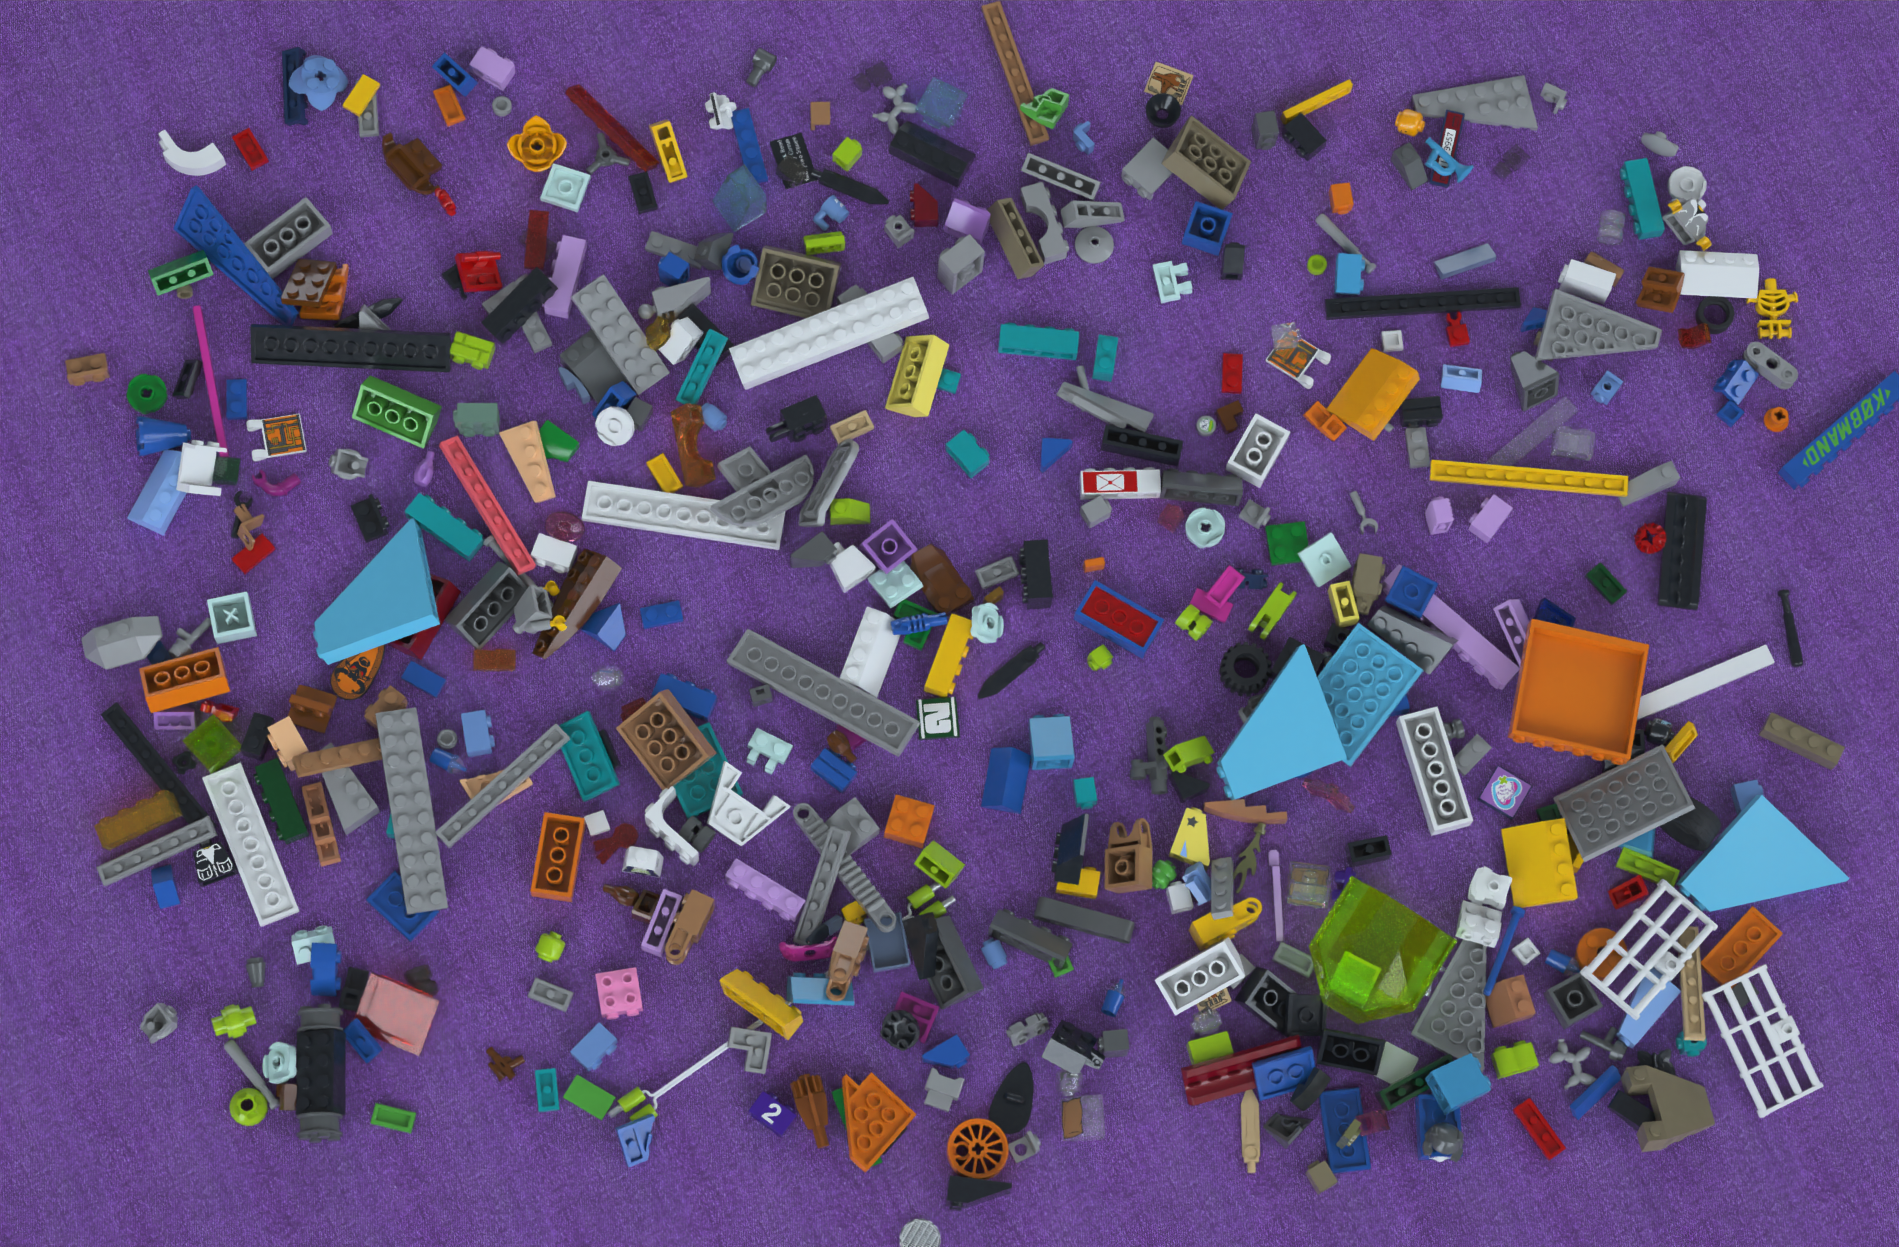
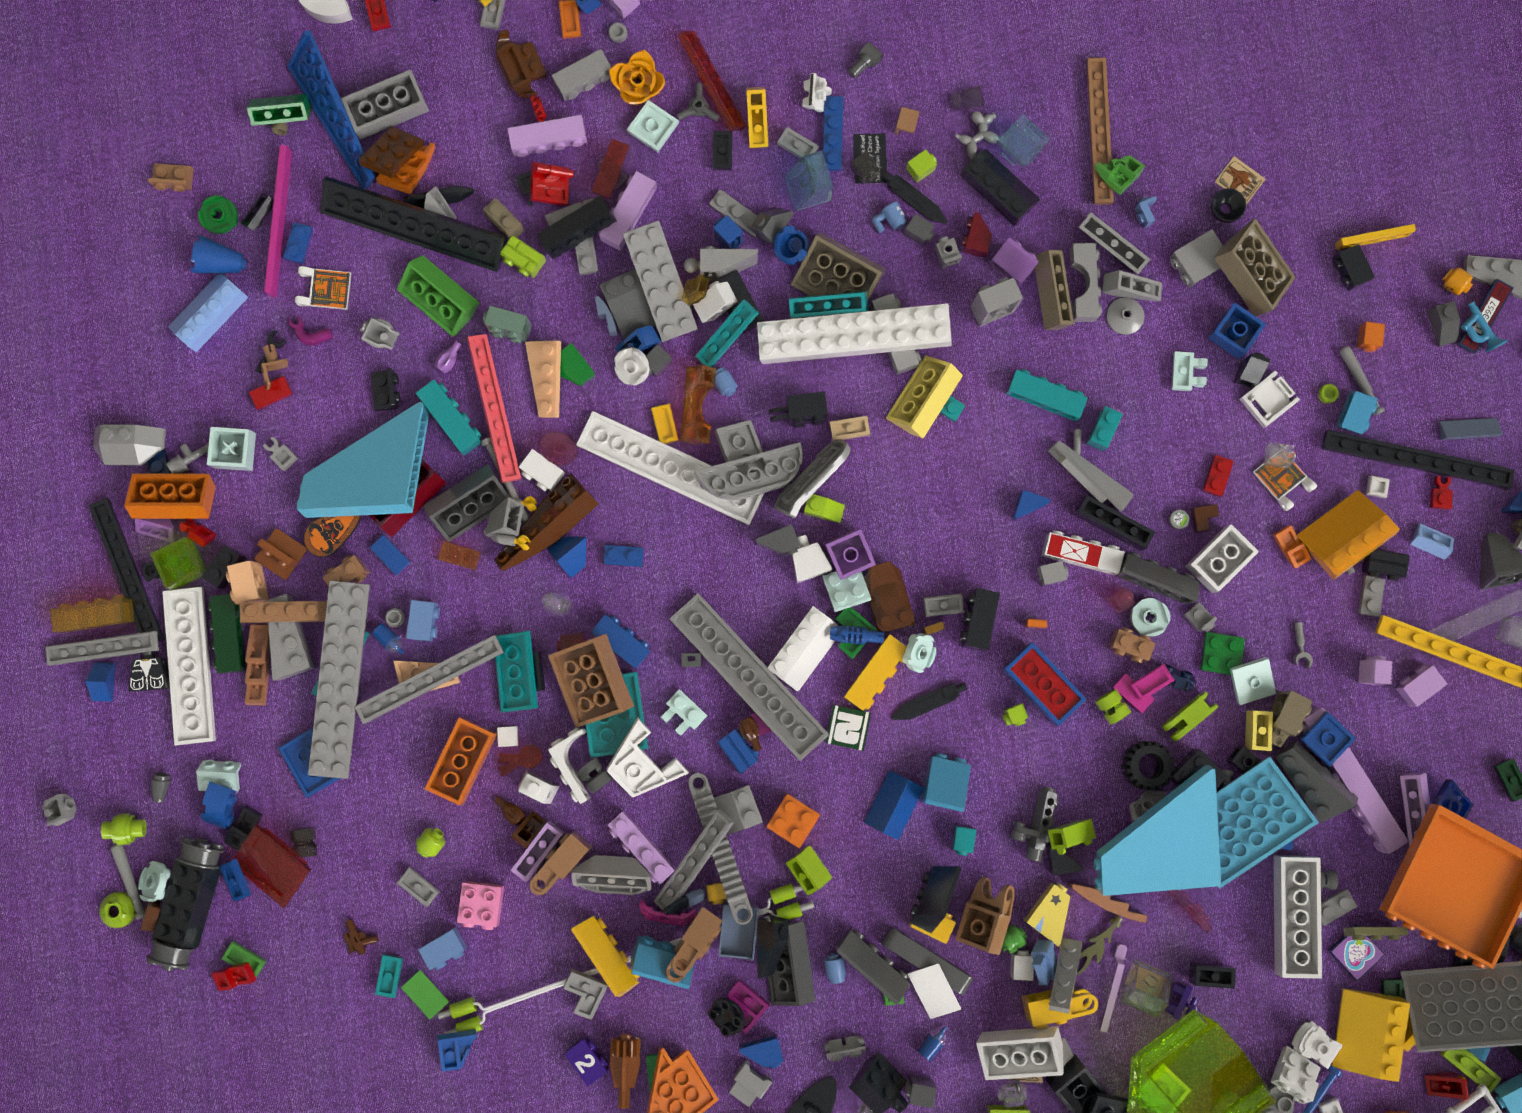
camera: 20 degrees right, 10 degrees up
(198, 468) = (239, 300): white panel -> none
(226, 470) = (268, 308): piece -> none
(283, 612) = (281, 455): none -> light grey plate
(388, 1135) = (234, 975): none -> red slope
(441, 318) = (503, 219): none -> dark tan brick
(461, 225) = (547, 135): none -> lavender brick
(479, 157) = (582, 75): none -> light grey brick
(715, 166) = (796, 143): none -> light grey plate
(745, 925) = (612, 875): none -> light grey wedge
(795, 311) = (828, 304): none -> teal brick
(824, 243) = (875, 245): lime bracket -> none
(864, 216) = (919, 230): none -> dark grey brick
(967, 453) = (949, 484): teal brick -> none
(1099, 946) = (934, 991): none -> white sticker
(1194, 558) = (1128, 644): none -> medium nougat brick
(1262, 283) = (1271, 397): none -> white container
(1265, 130) = (1319, 251): dark grey brick -> none
(1294, 959) = (1111, 1054): light grey tile -> none
(1514, 764) = (1375, 933): none -> olive plate

